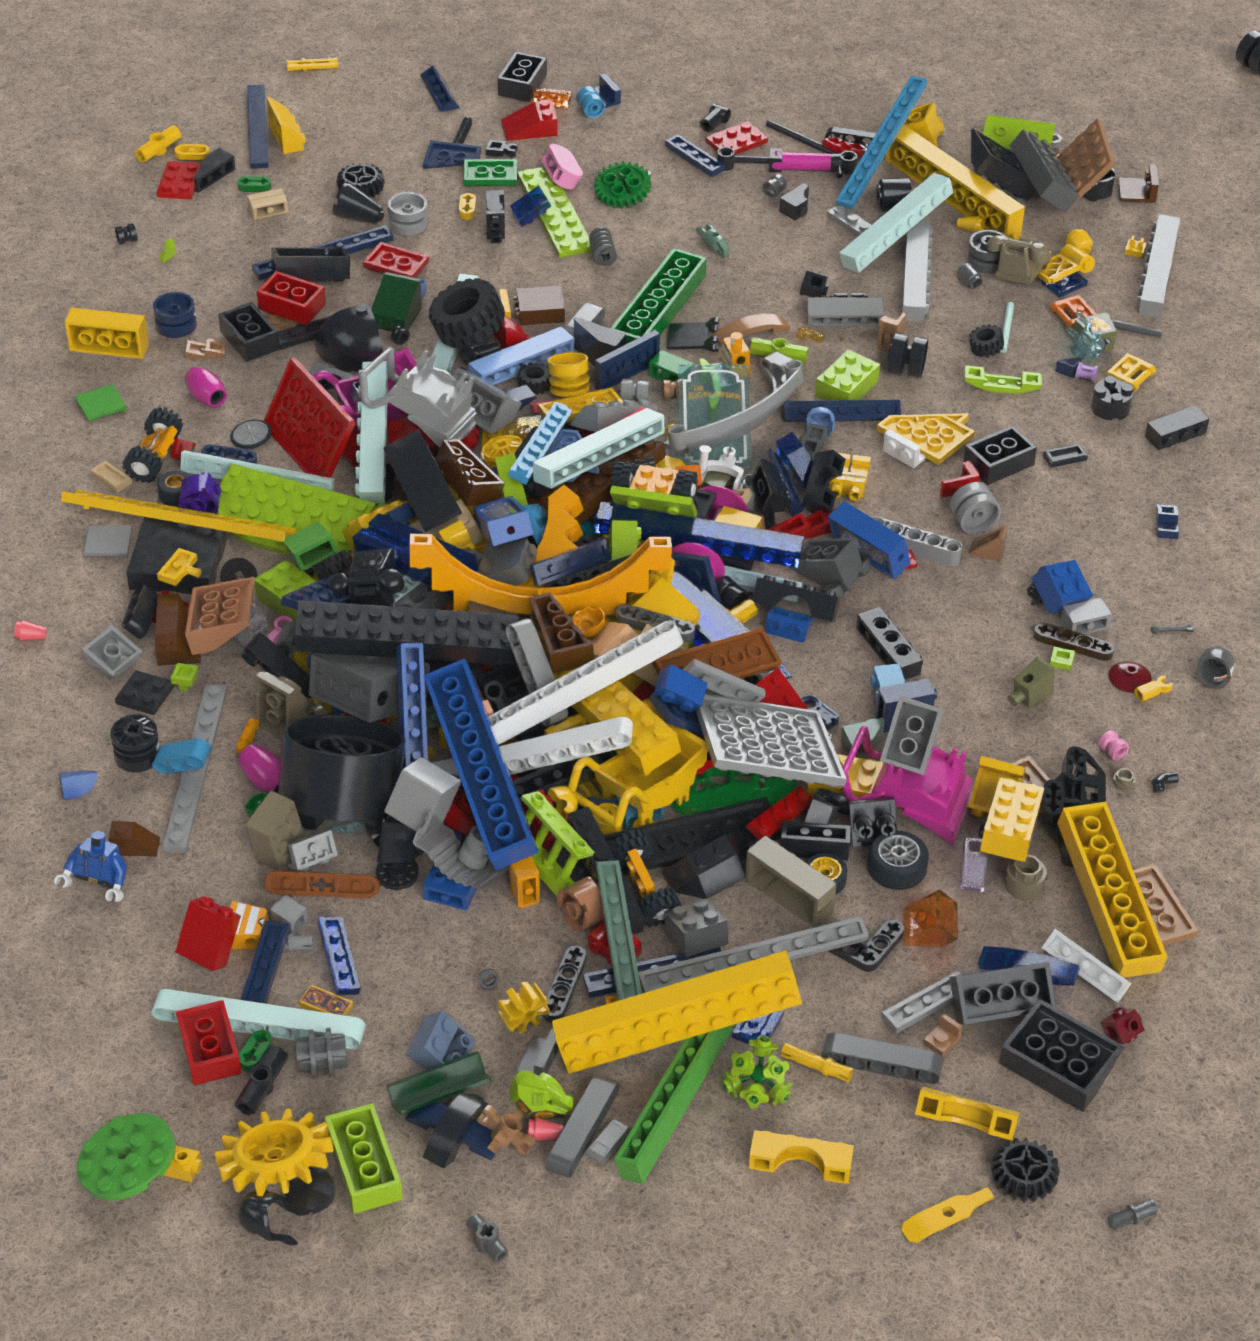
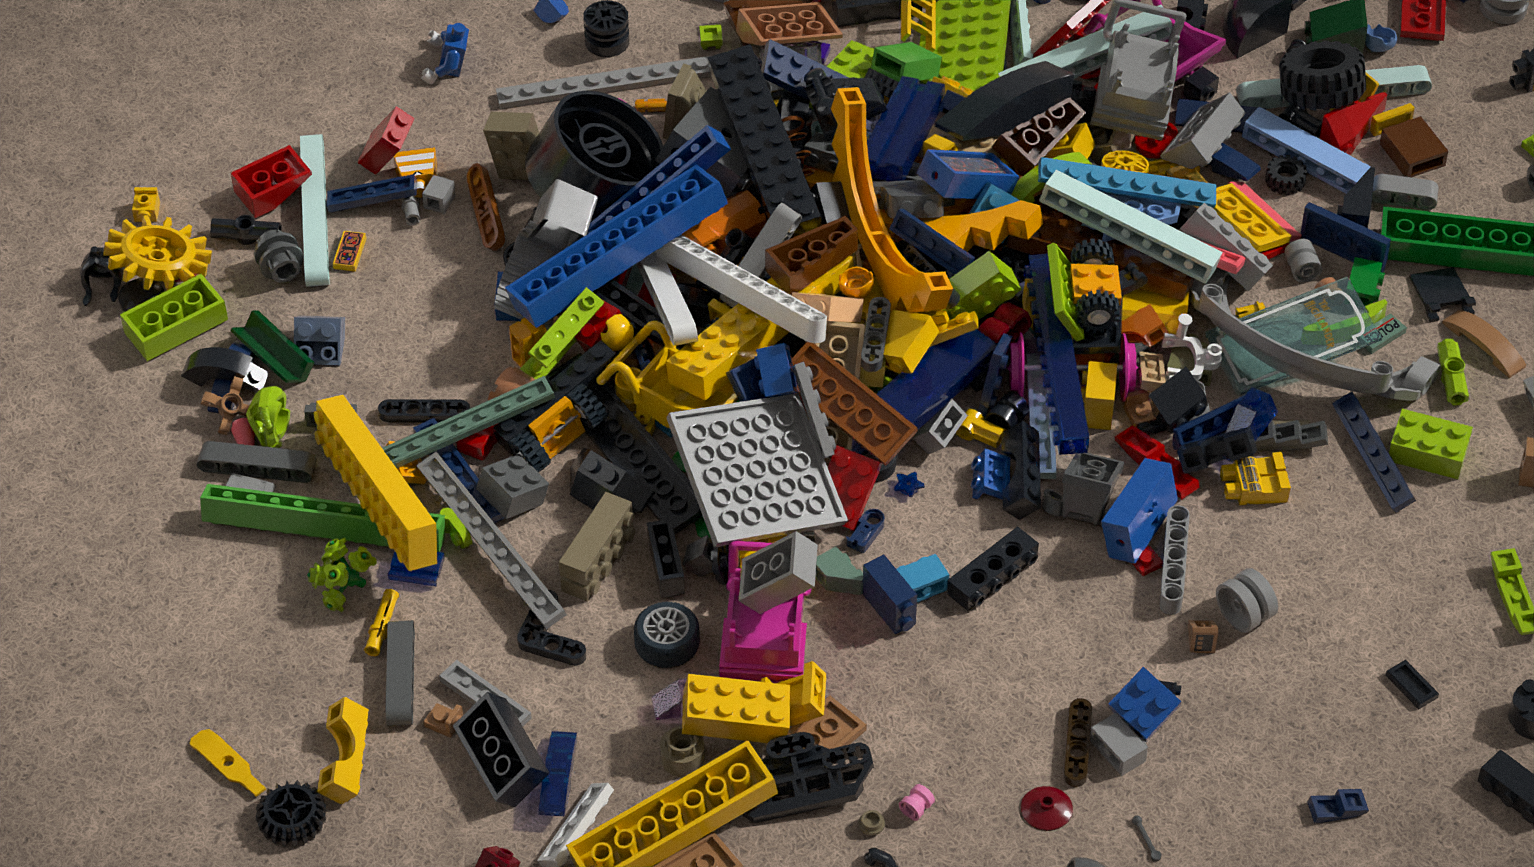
camera: 75 degrees right, 5 degrees up
(114, 1178) = (156, 166): bright green plate -> none
(133, 839) = (493, 65): reddish brown slope -> none
(144, 692) = (684, 19): black plate -> none
(182, 756) = (599, 62): dark azure beam -> none
(235, 565) = (863, 30): black piece -> none
(252, 1049) = (284, 216): green beam -> none
(312, 850) = (514, 183): light grey bracket -> none
(339, 956) = (404, 241): clear blue plate -> none
(487, 1237) = (114, 425): dark grey axle -> none
(490, 983) = (406, 355): black hinge -> none
(523, 1007) = (372, 380): yellow gear -> none
(568, 374) = (1290, 193): yellow wheel -> none
(735, 350) = (1410, 332): light orange torso -> none
(773, 1149) = (261, 655): yellow arch -> none
(785, 810) = (682, 516): red plate -> none
(811, 333) = (1502, 388): clear yellow arm -> none
(823, 417) = (1338, 432): medium blue hair -> none
(832, 867) = (630, 569): wheel -> none
(870, 819) = (701, 596): black plate -> none
(902, 354) = (1498, 487): black wheel -> none
(902, 449) = (1330, 521): white bracket -> none
(931, 921) = (592, 682): clear orange slope -> none
(935, 433) = (1377, 542): yellow wing -> none
(969, 475) = (1307, 596): red bracket -> none
(1001, 454) = (1363, 611): black brick -> none
(1033, 683) = (976, 707): olive torso -> none
(1060, 1055) = (435, 813): black slope -> none
(1062, 658) = (1045, 735): lime tile -> none
(1152, 689) = (1029, 830): yellow bar -> none

